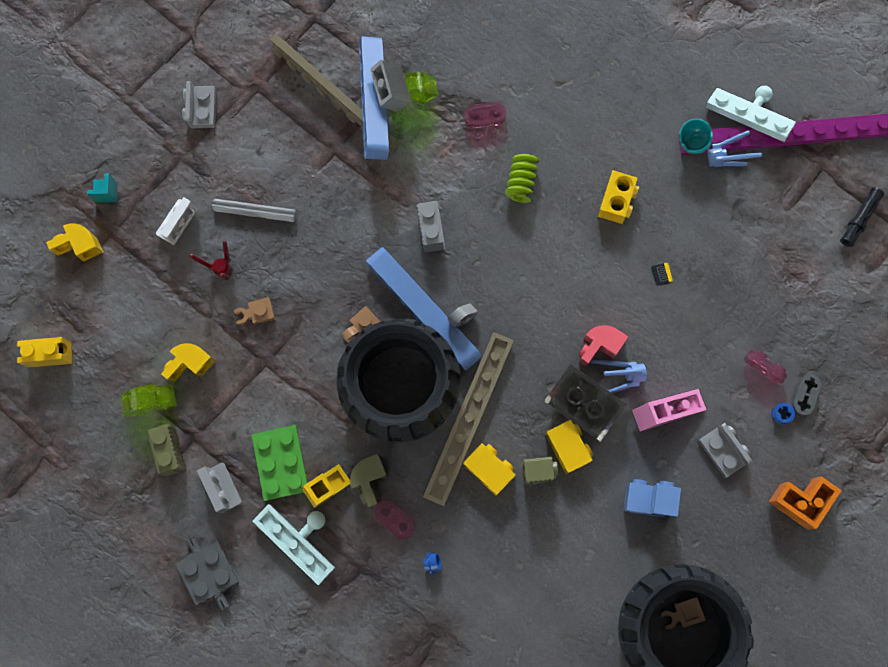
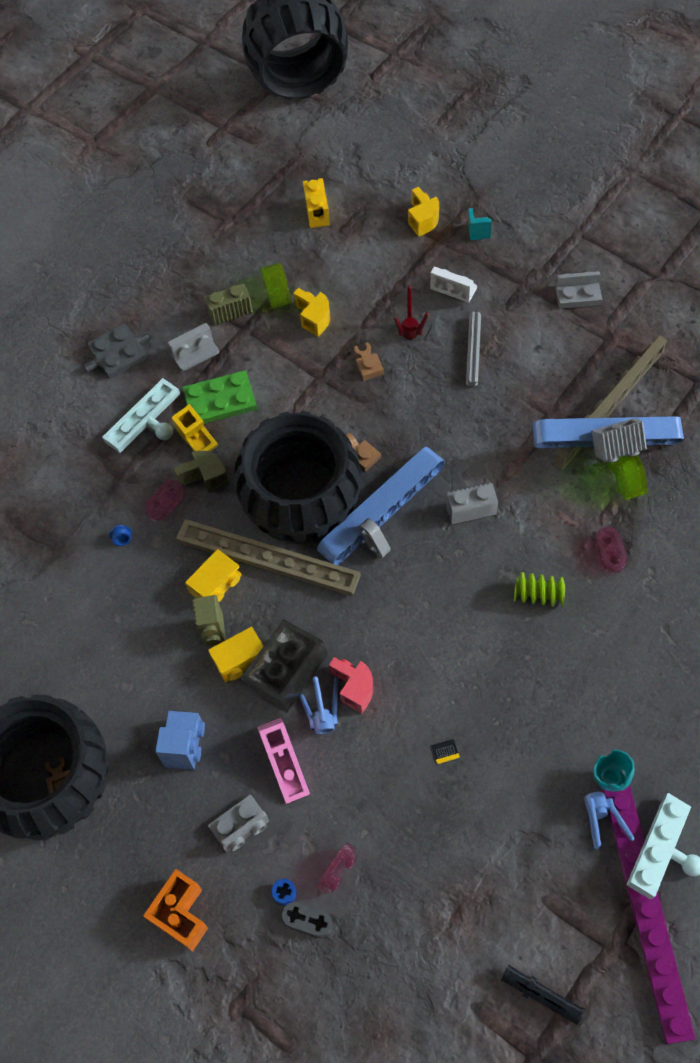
camera: 85 degrees right, 15 degrees down
(618, 197) = (531, 686): yellow brick -> none

